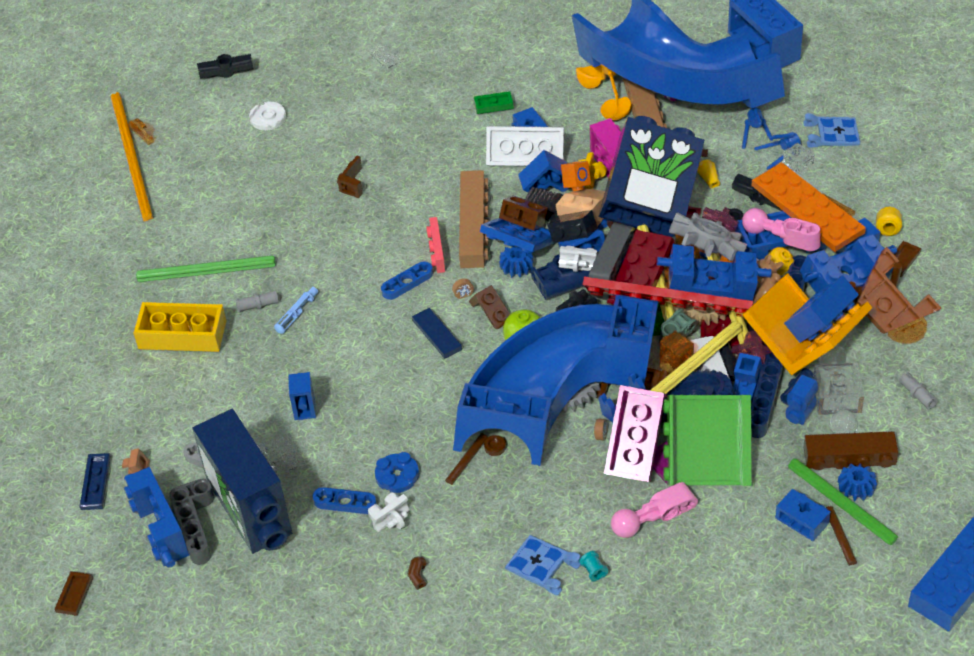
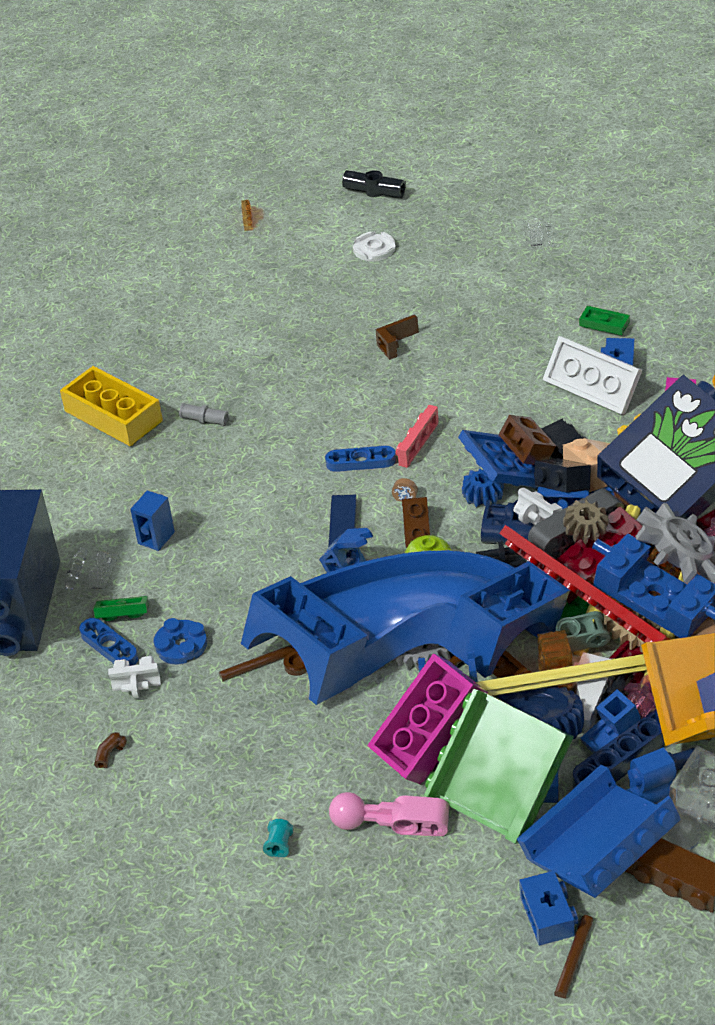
camera: 35 degrees right, 5 degrees down
(131, 157) = (217, 236): light orange axle -> none
(205, 268) = (189, 364): bright green axle -> none
(295, 310) = (230, 439): light blue piece -> none
(338, 466) = (112, 608): none -> green plate
(463, 351) = (345, 549): none -> blue piece
(472, 214) = (484, 415): medium nougat brick -> none
(539, 561) = (232, 804): medium blue flag -> none
(543, 172) = (591, 409): blue brick -> none
(576, 175) = (612, 423): orange brick -> none
(627, 250) = (585, 521): none -> dark tan gear
(801, 451) = (596, 832): none -> blue panel
(843, 502) = (616, 945): bright green axle -> none
(857, 482) = (642, 906): blue gear -> none

